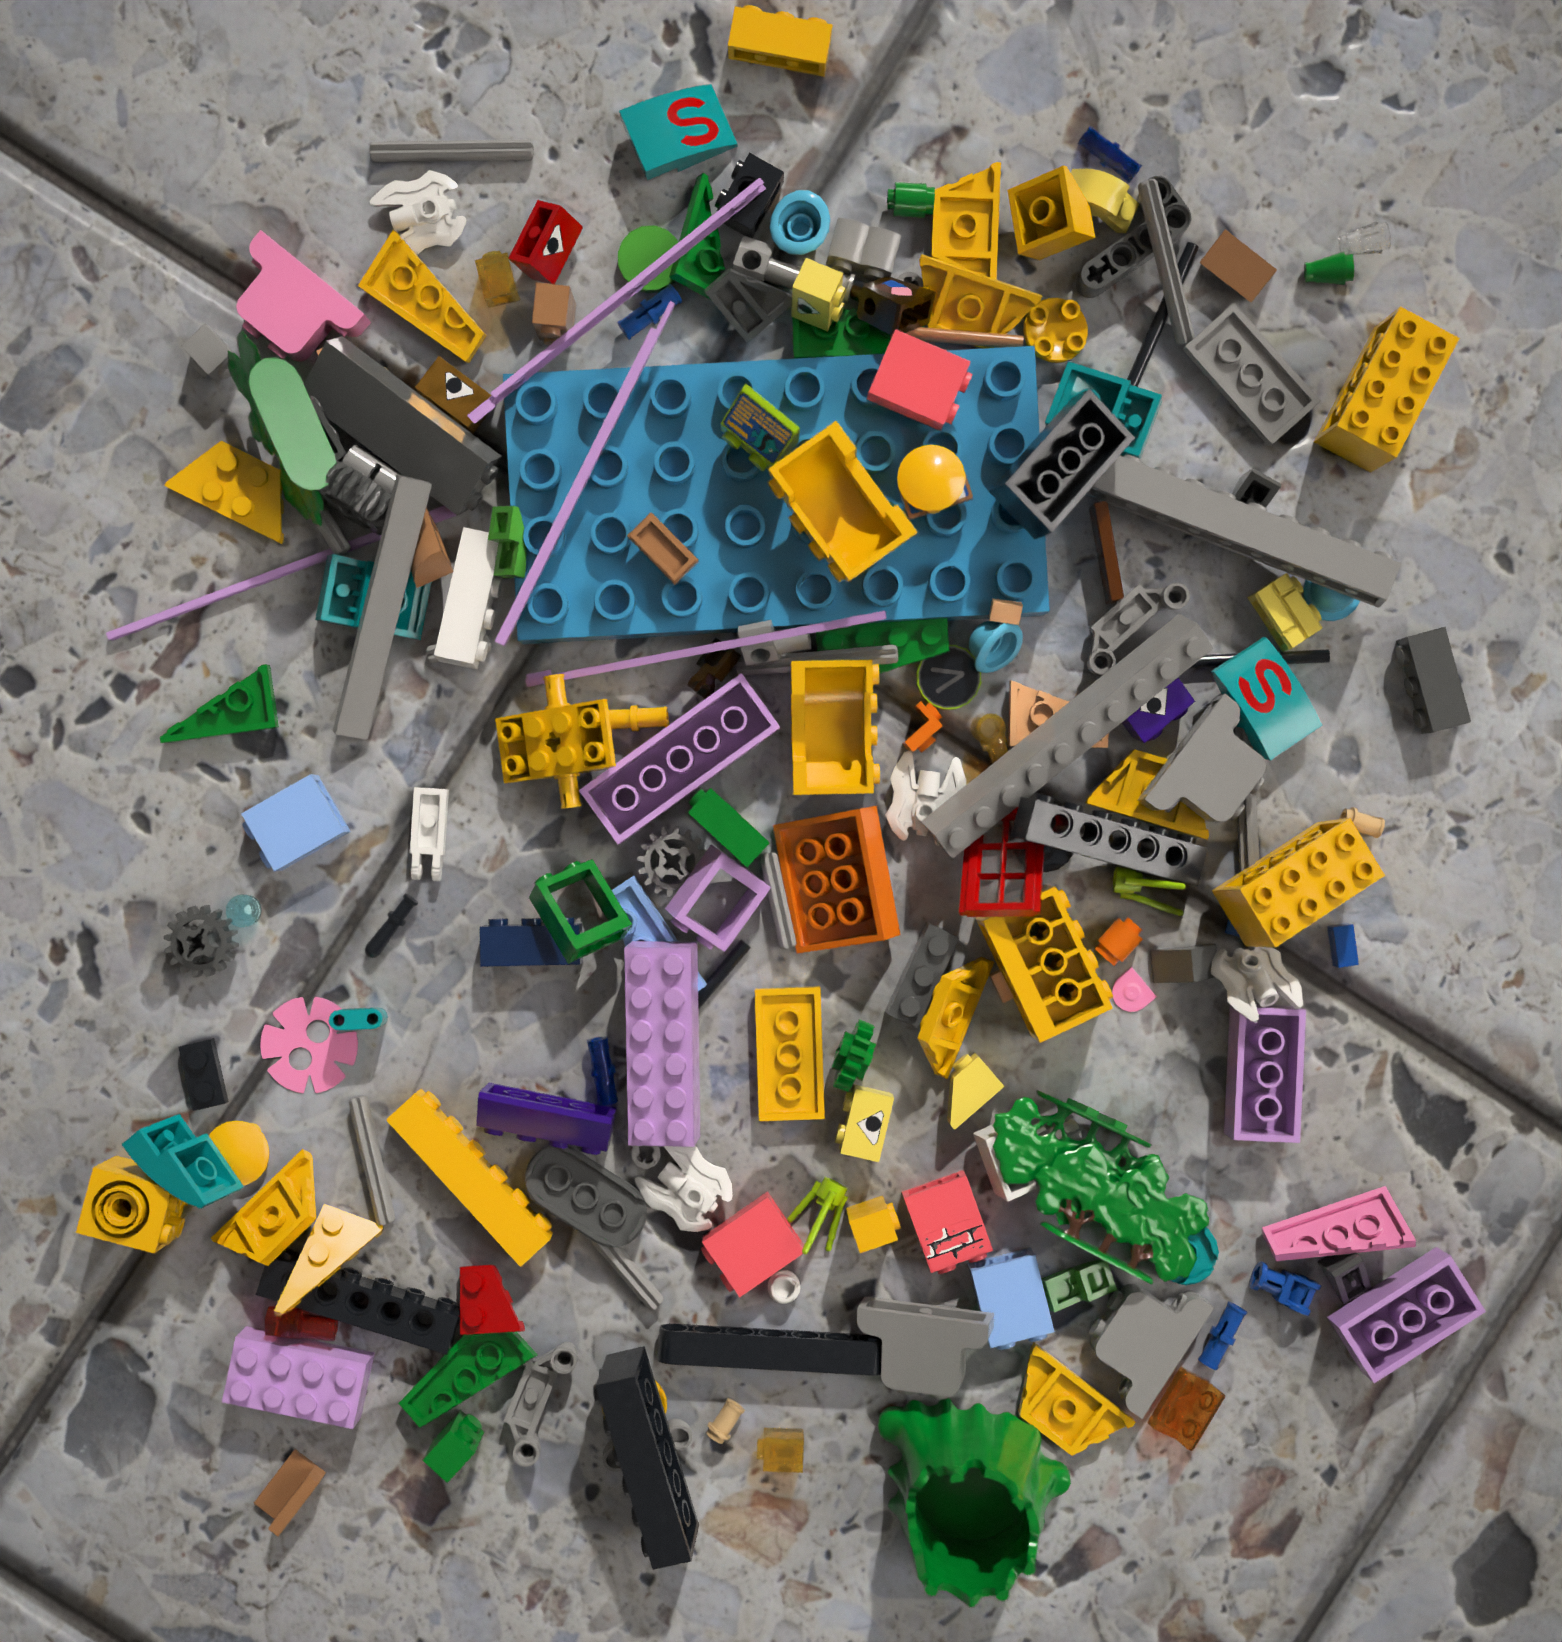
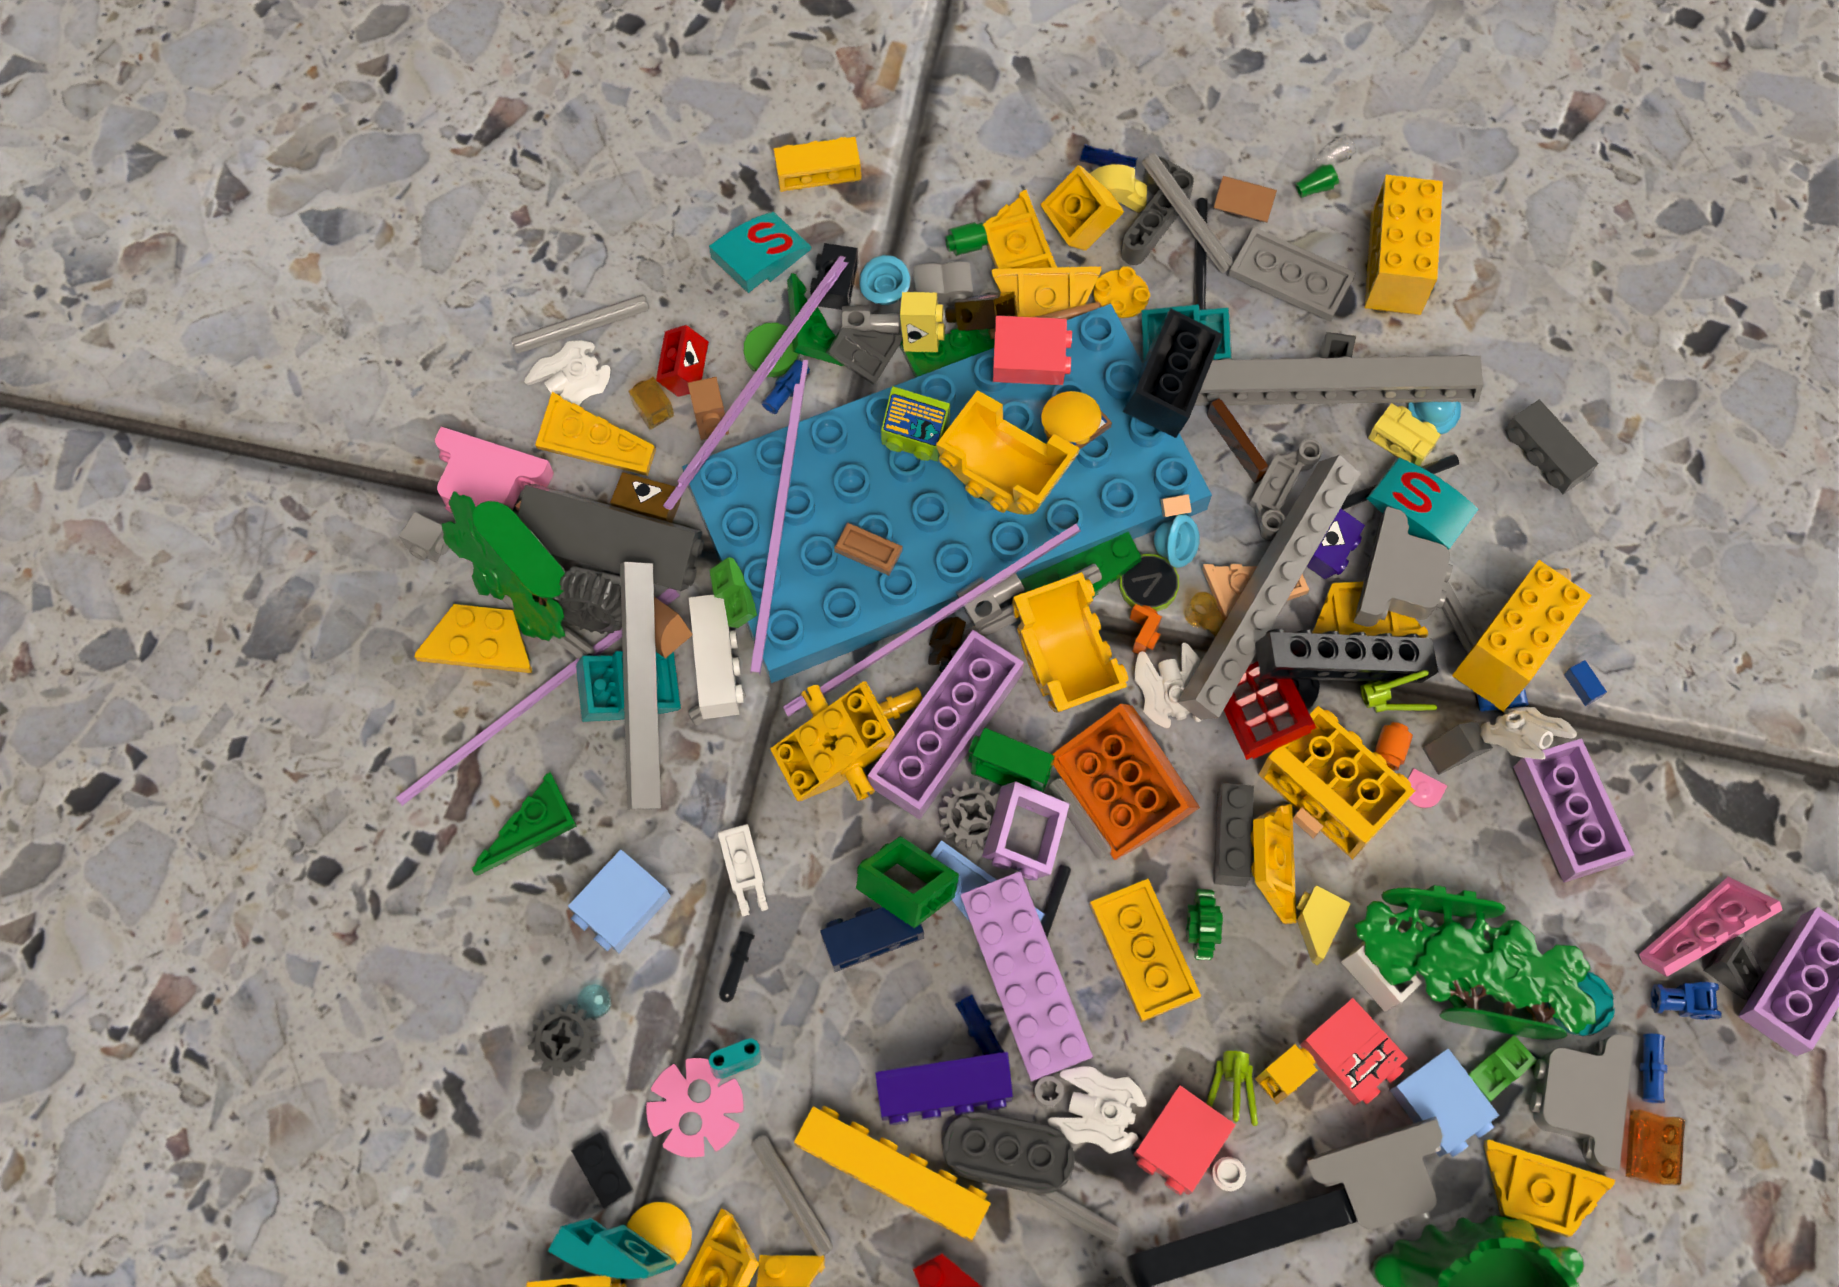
camera: 20 degrees left, 20 degrees down
(865, 1122) = (1239, 987): light yellow brick -> none

